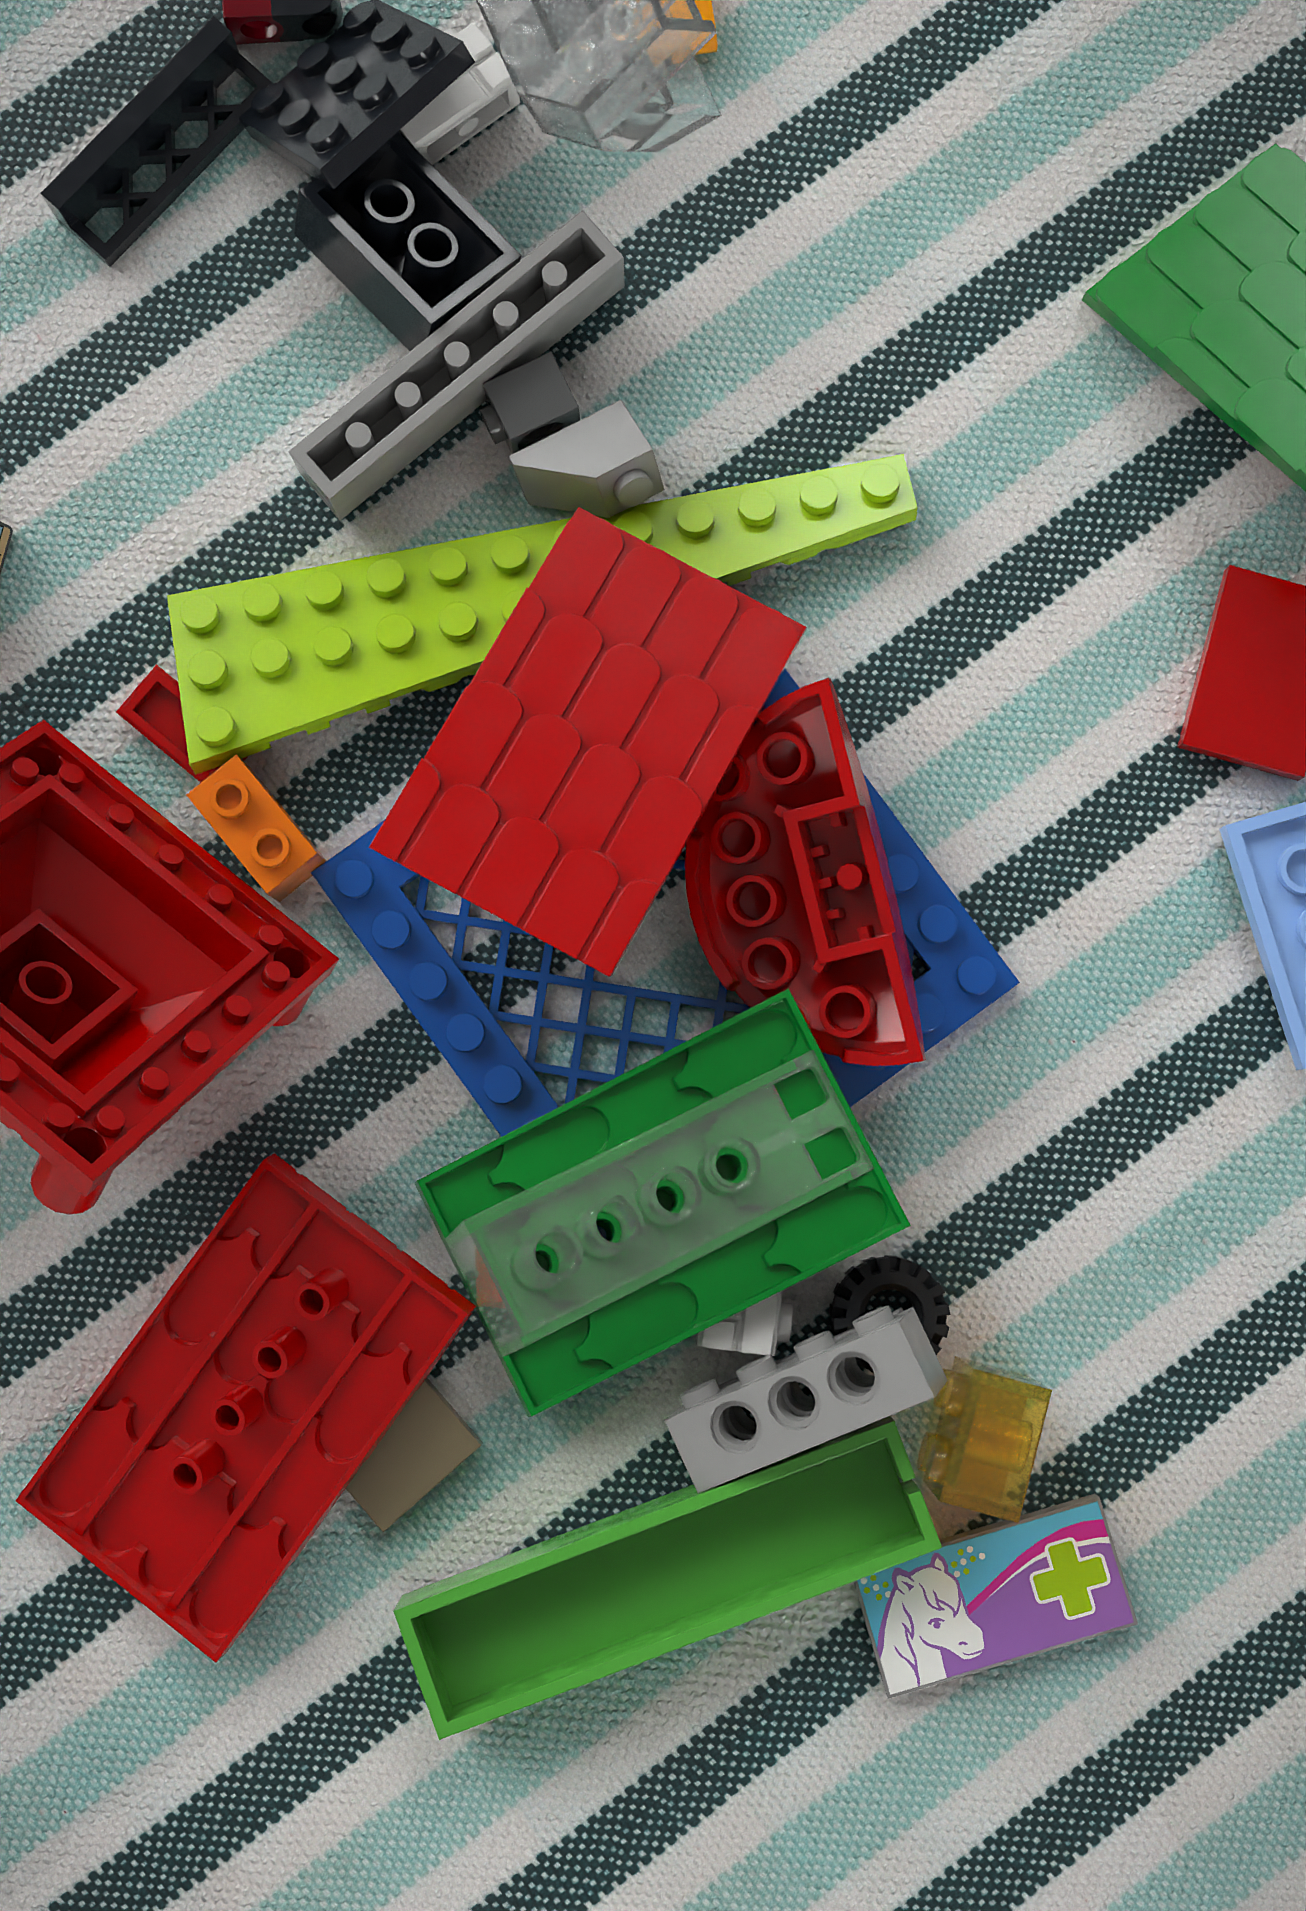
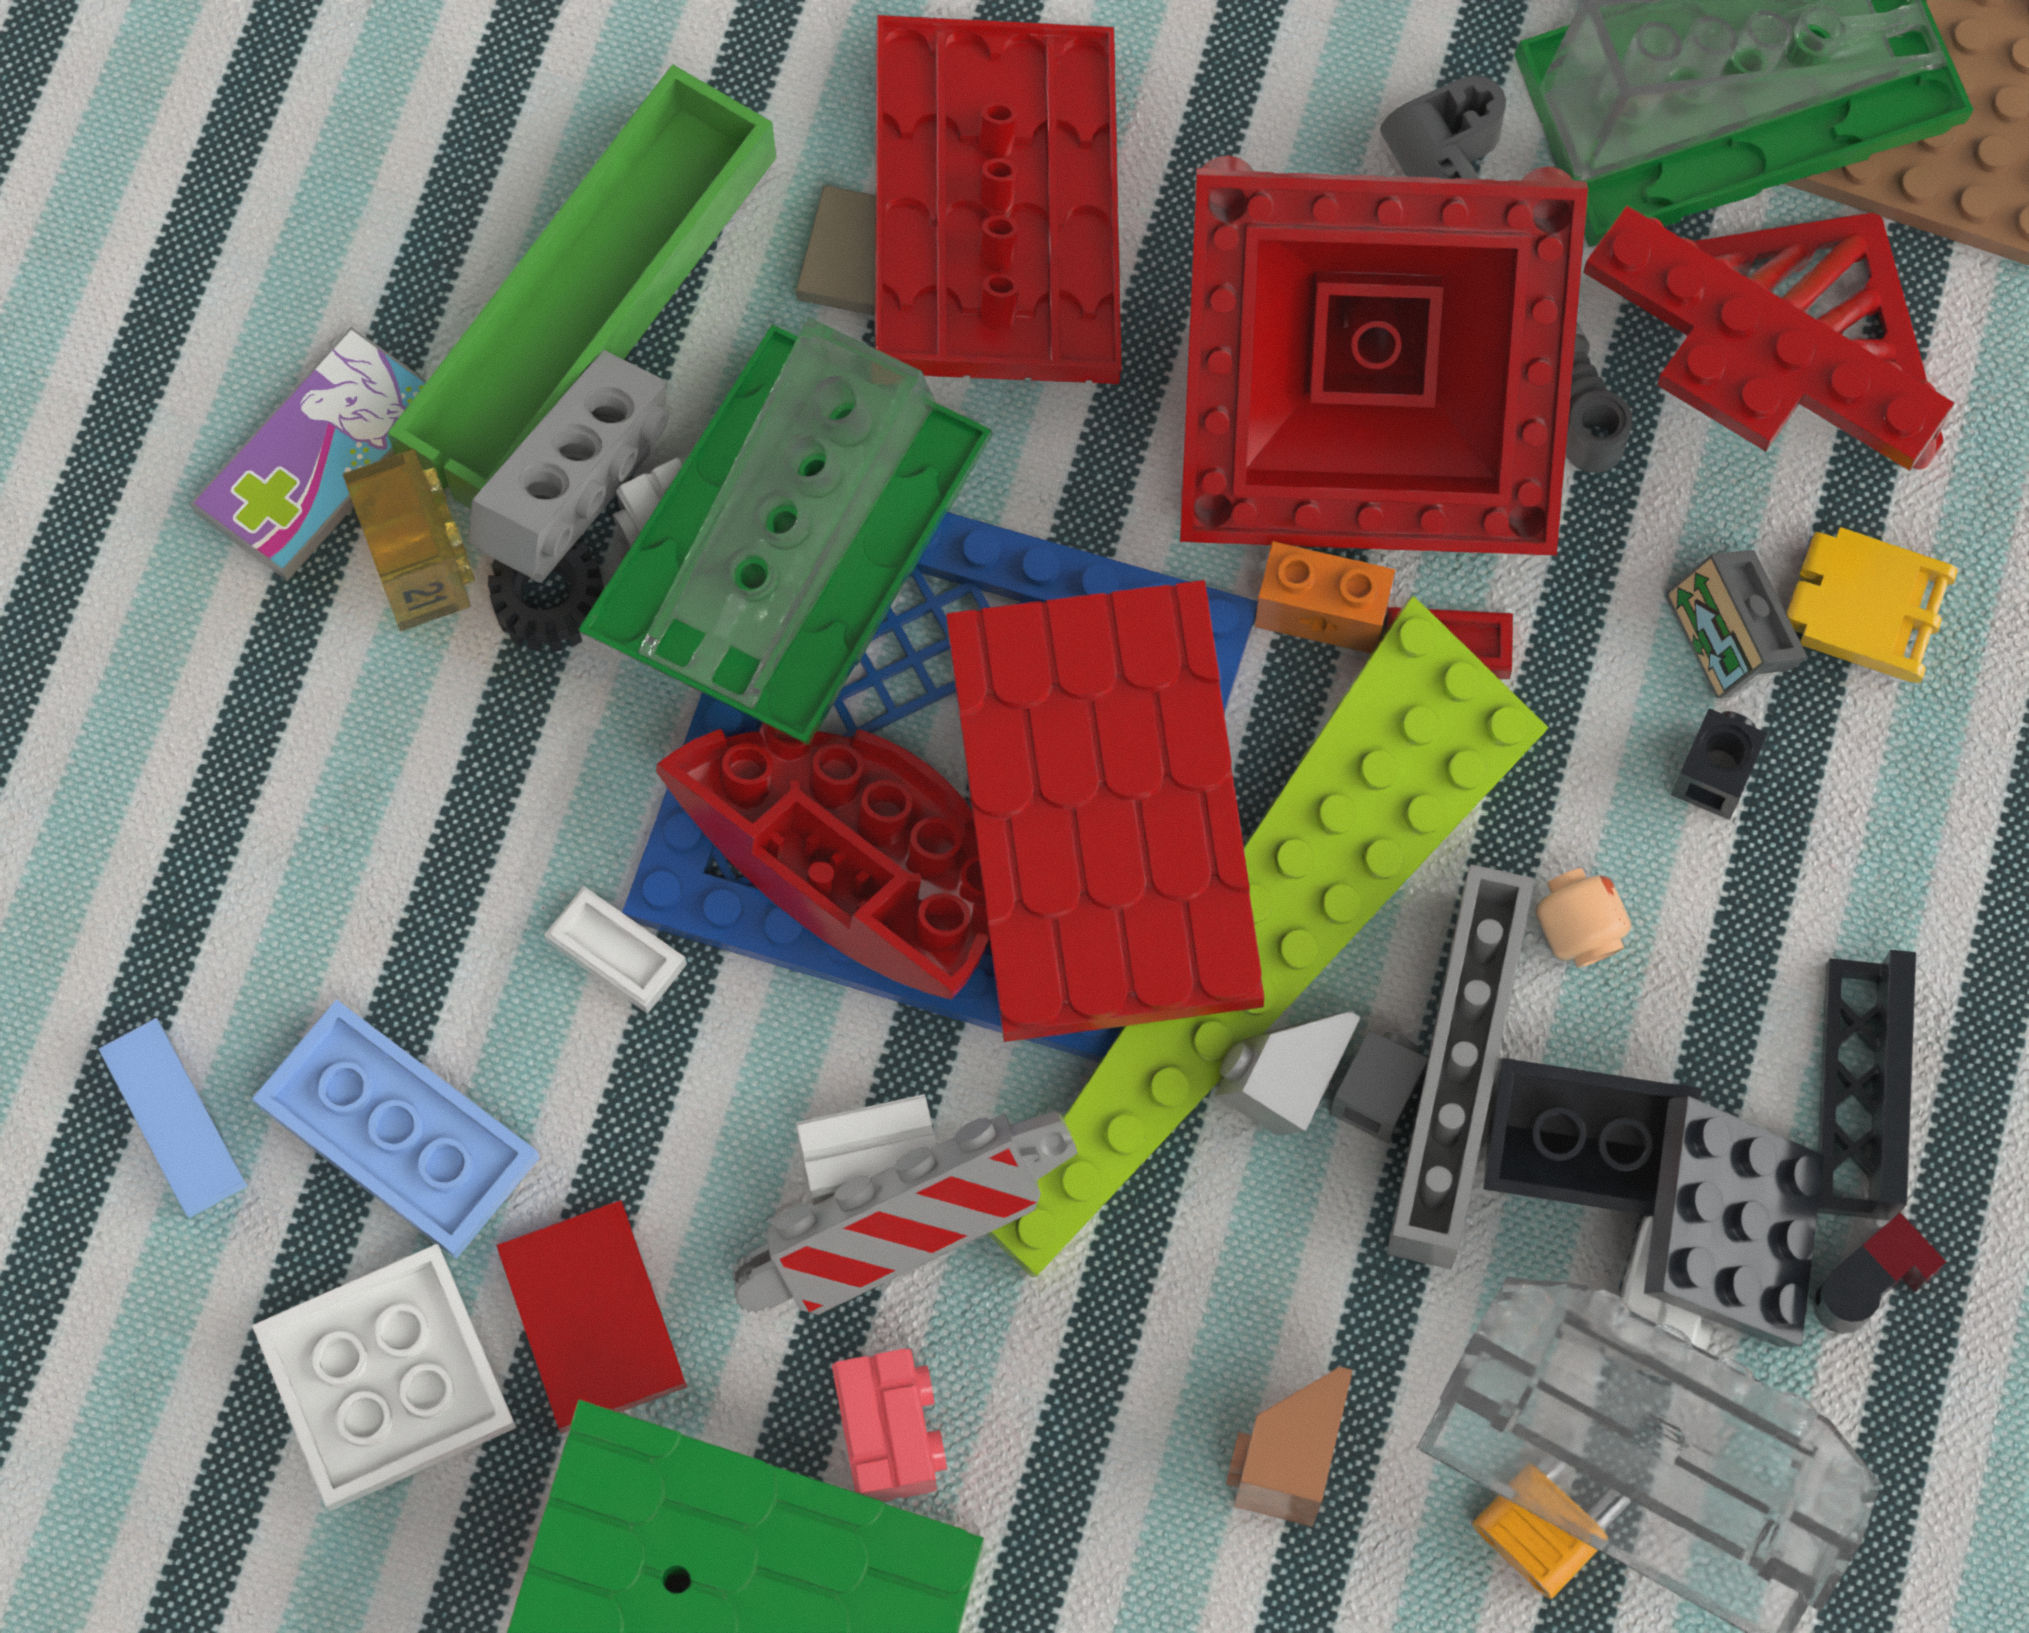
camera: 145 degrees right, 15 degrees down
(79, 479) = (1713, 786): none -> black brick
(268, 417) = (1583, 918): none -> light nougat head
(817, 166) = (1290, 1452): none -> nougat slope
(966, 635) = (861, 1142): none -> white brick
(984, 551) = (903, 1215): none -> light grey hinge
(1043, 958) = (615, 949): none -> white tile
(1103, 419) = (886, 1425): none -> coral brick

